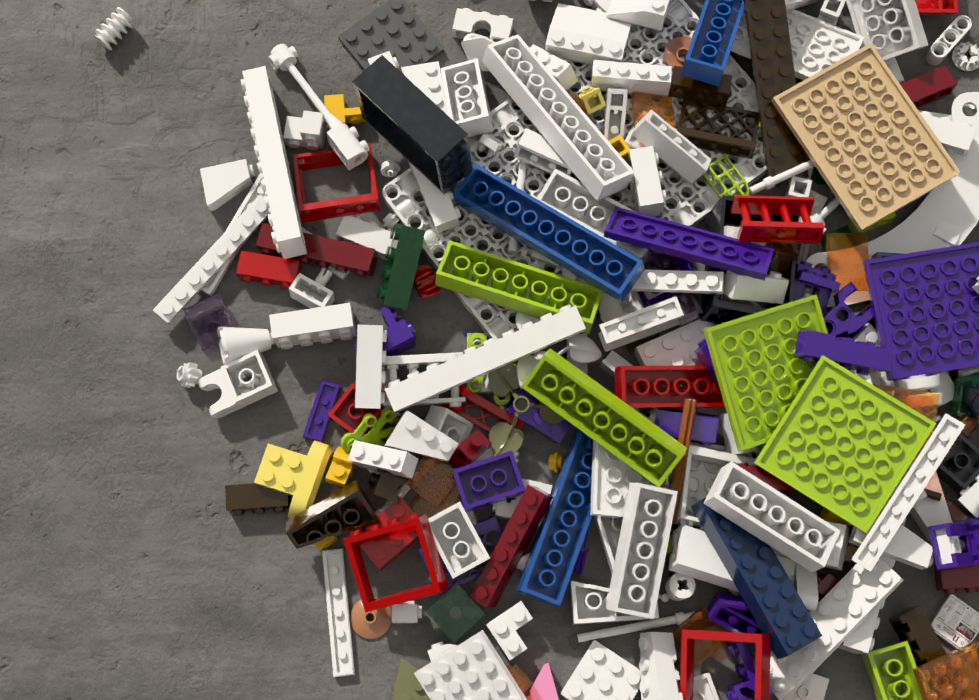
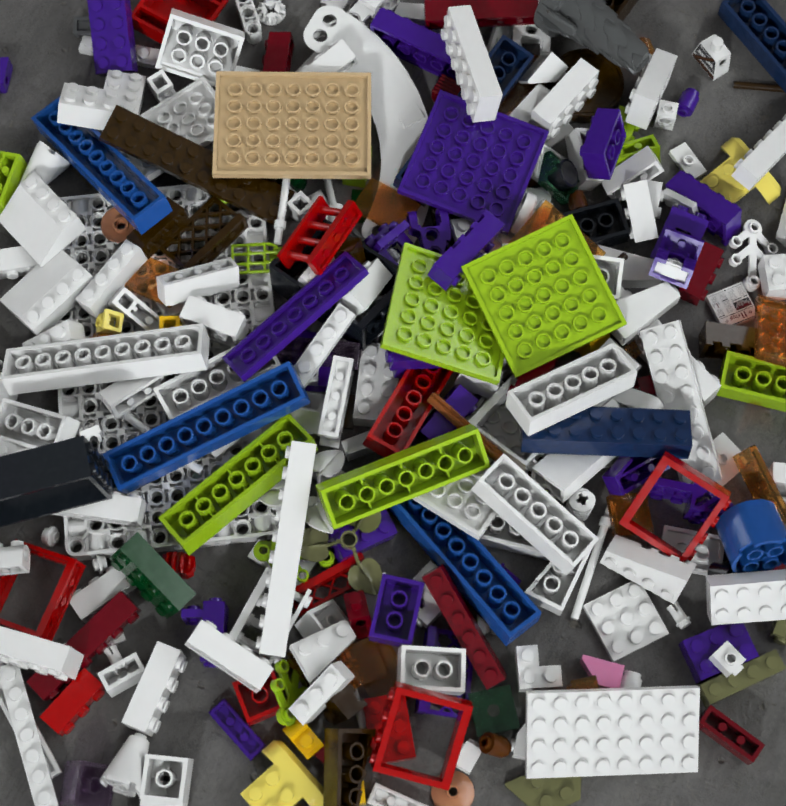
camera: 60 degrees left, 5 degrees down
(427, 630) = (495, 745): none -> reddish brown brick
(555, 462) = (410, 546): yellow plate -> none
(908, 492) = (613, 271): white plate -> none

